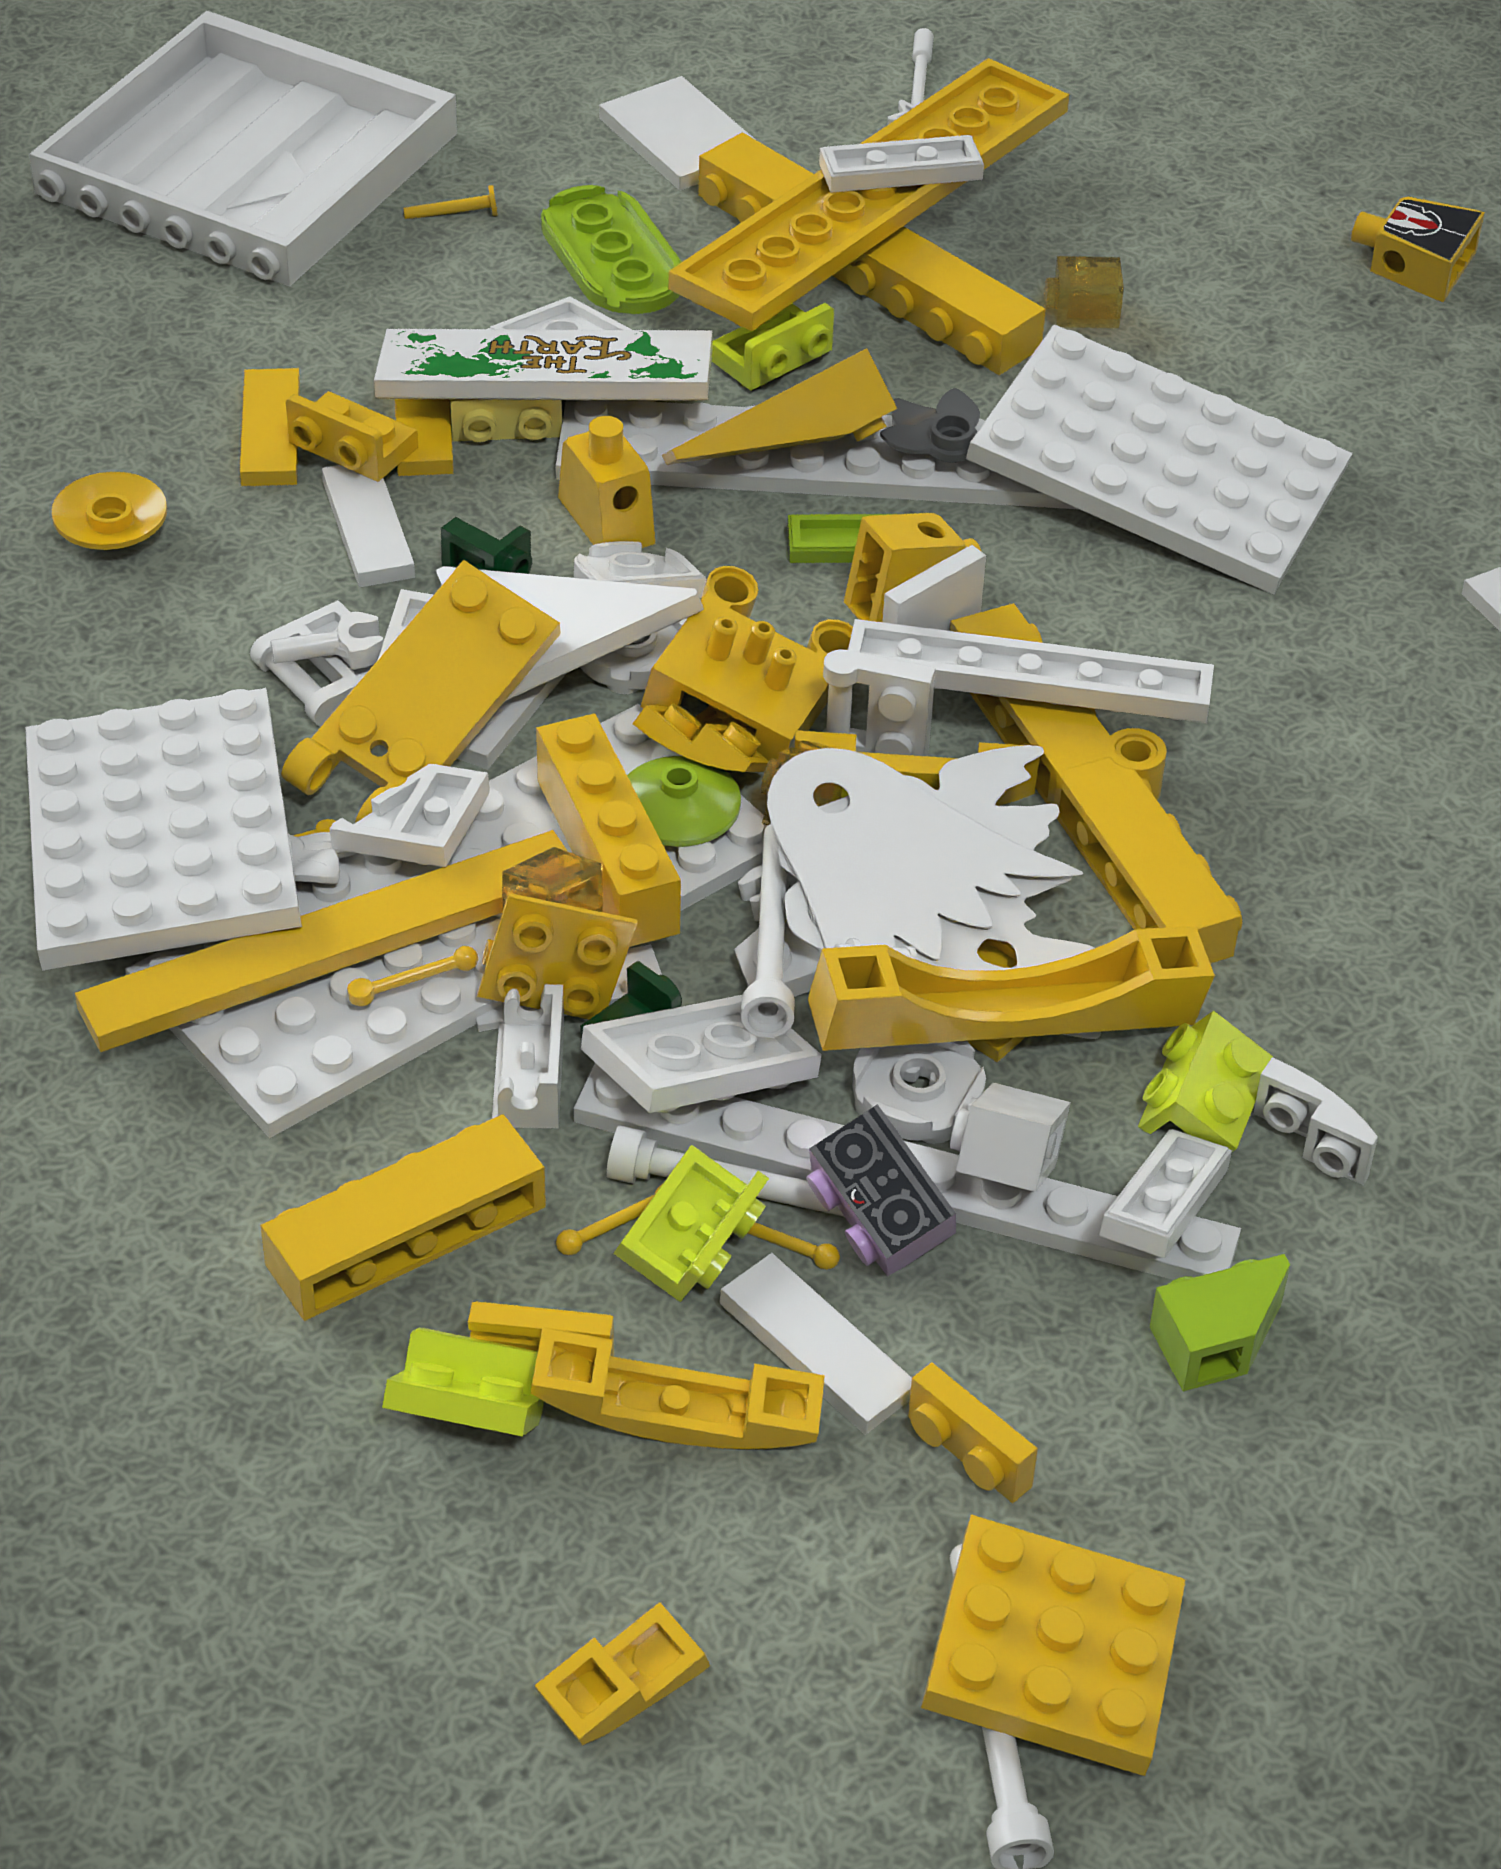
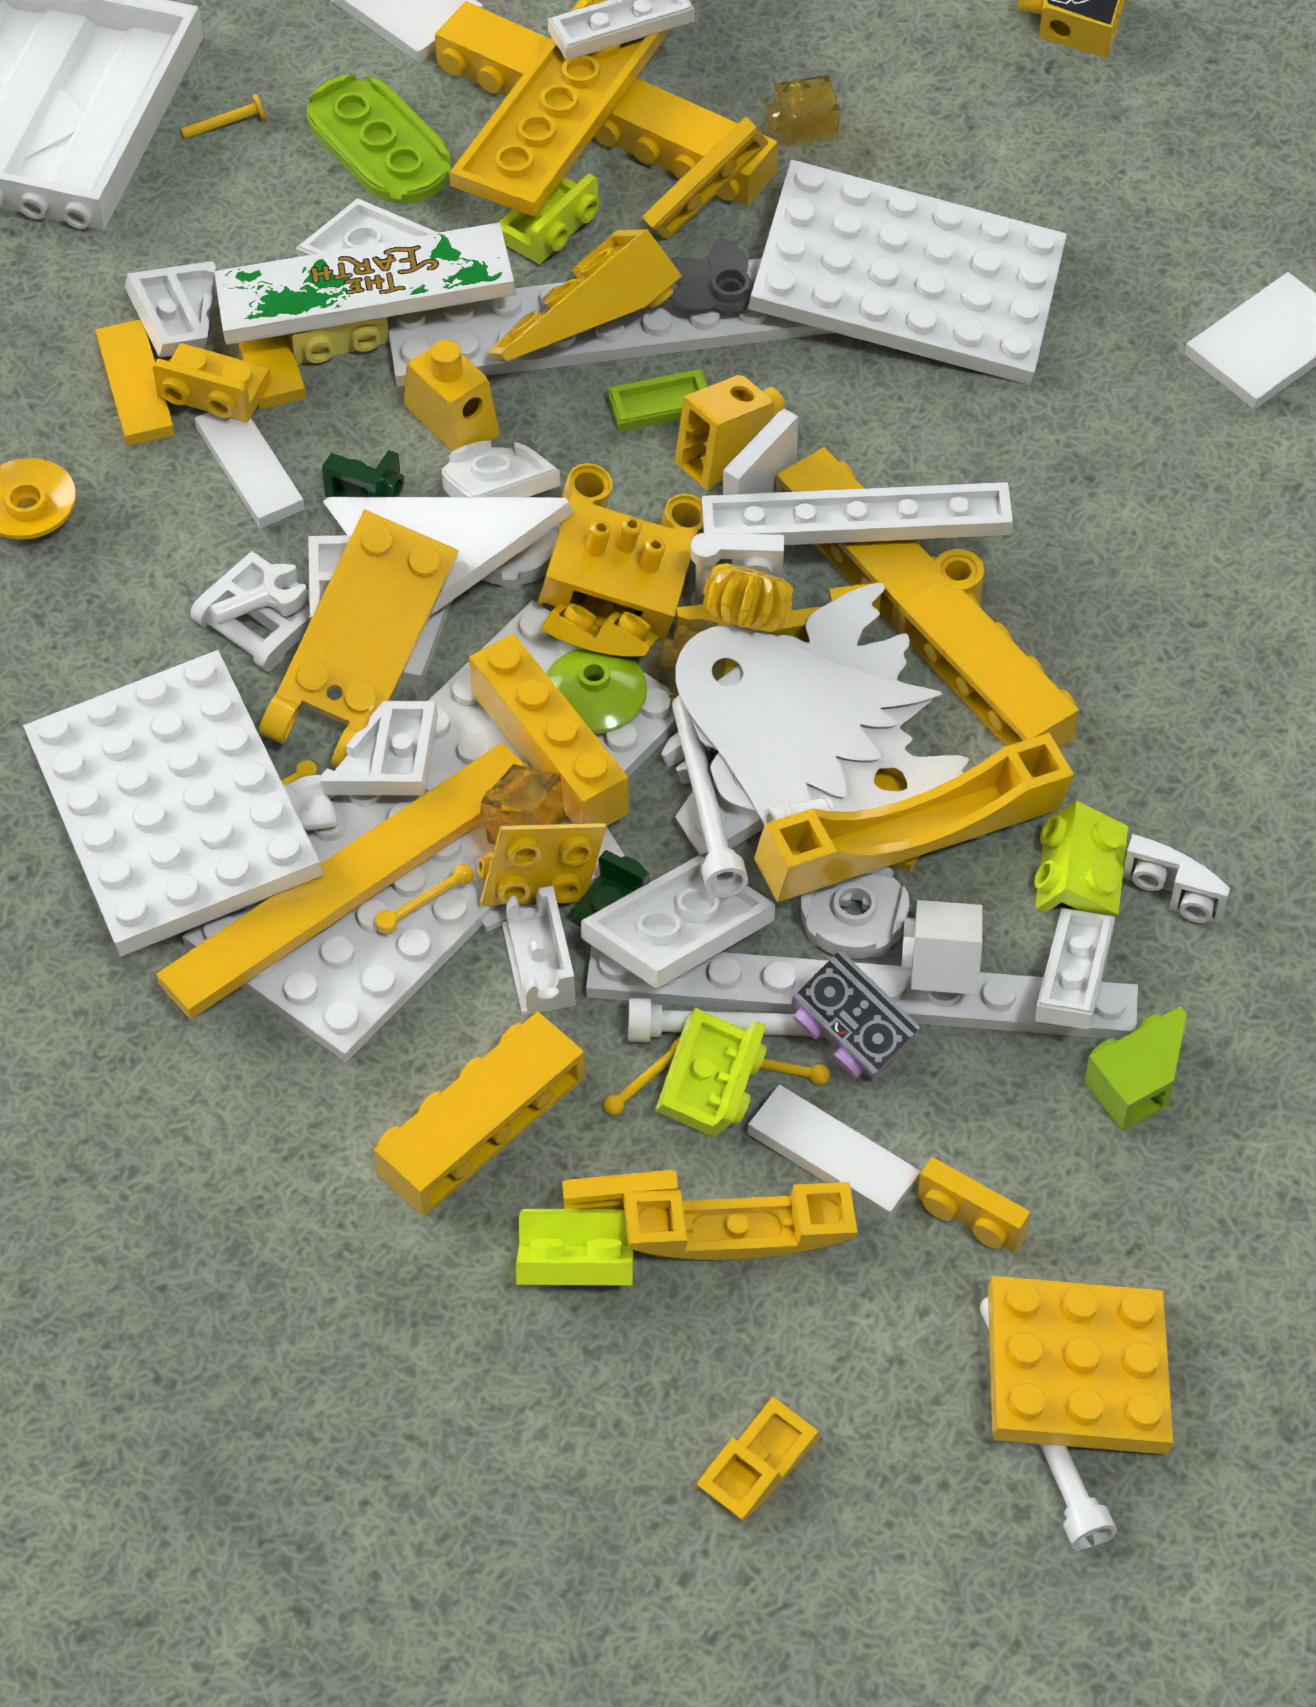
camera: 10 degrees left, 10 degrees up
(335, 357) = (173, 304): none -> white wing
(875, 723) = (747, 597): none -> yellow gear
(953, 328) = (706, 179): none -> yellow tile

